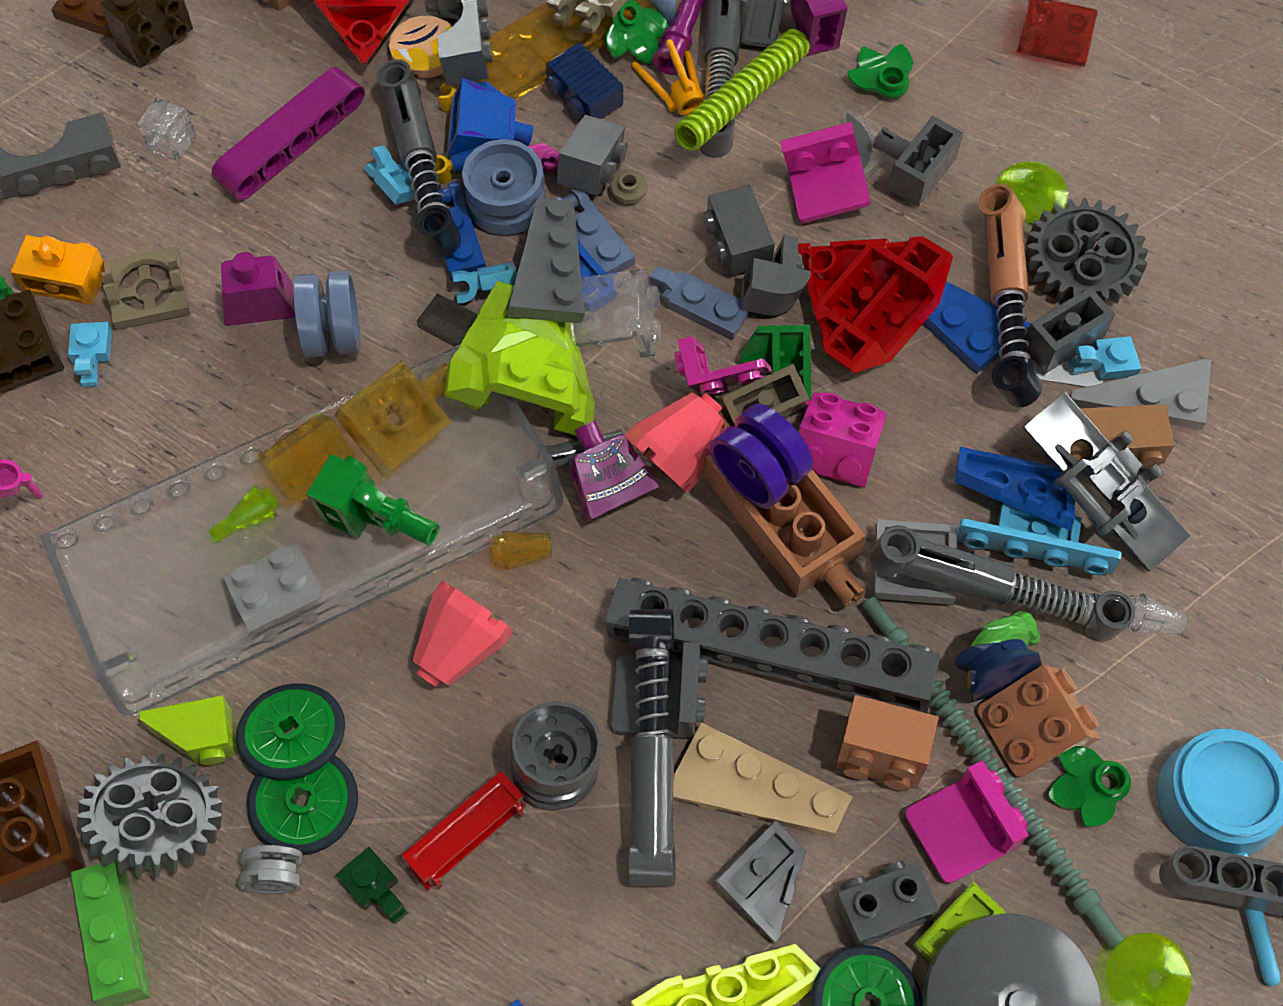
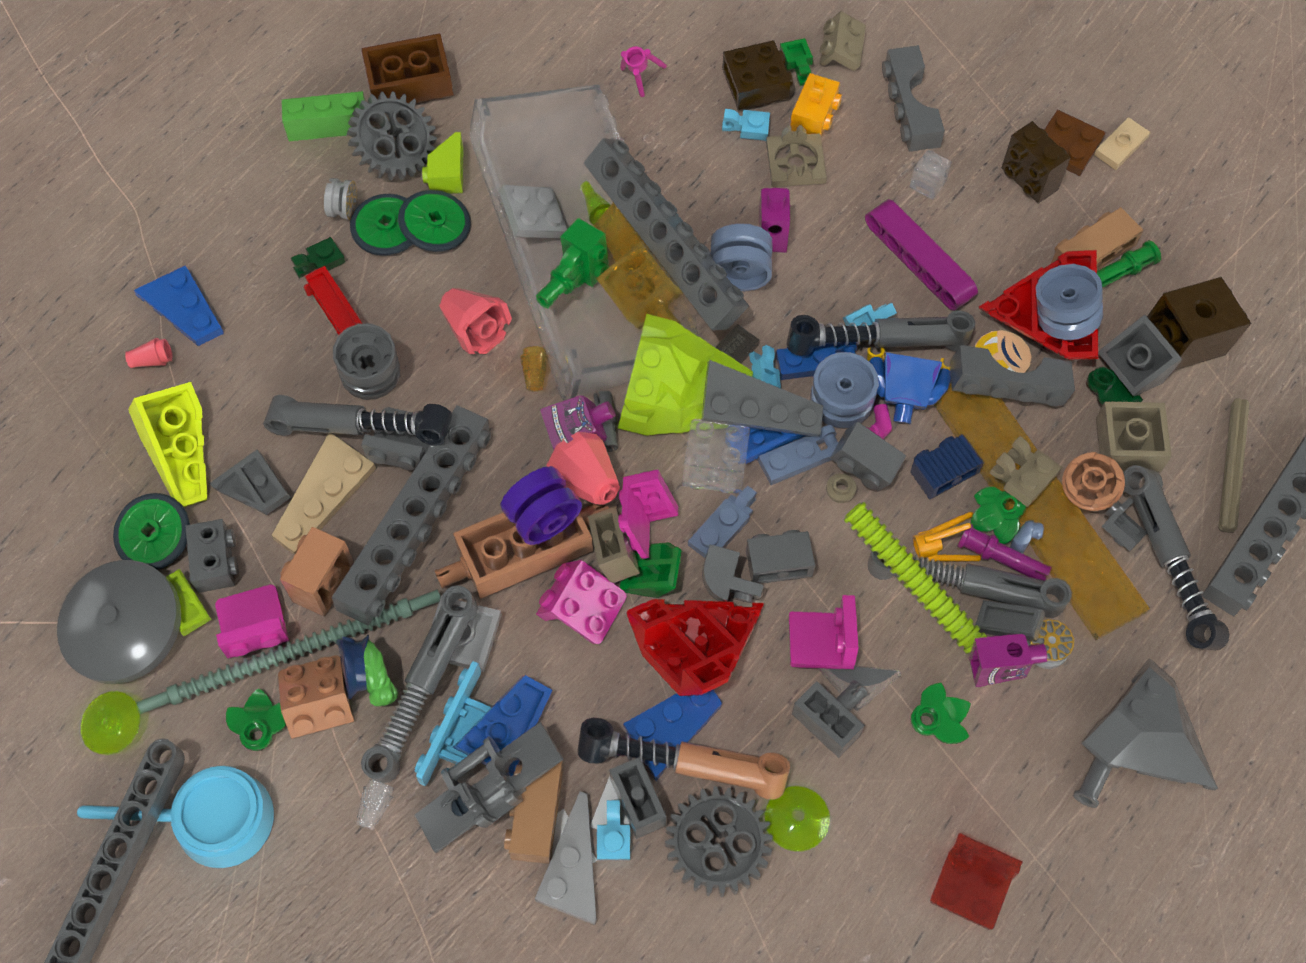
camera: 100 degrees right, 0 degrees up
(189, 466) = (618, 176): none -> dark grey brick

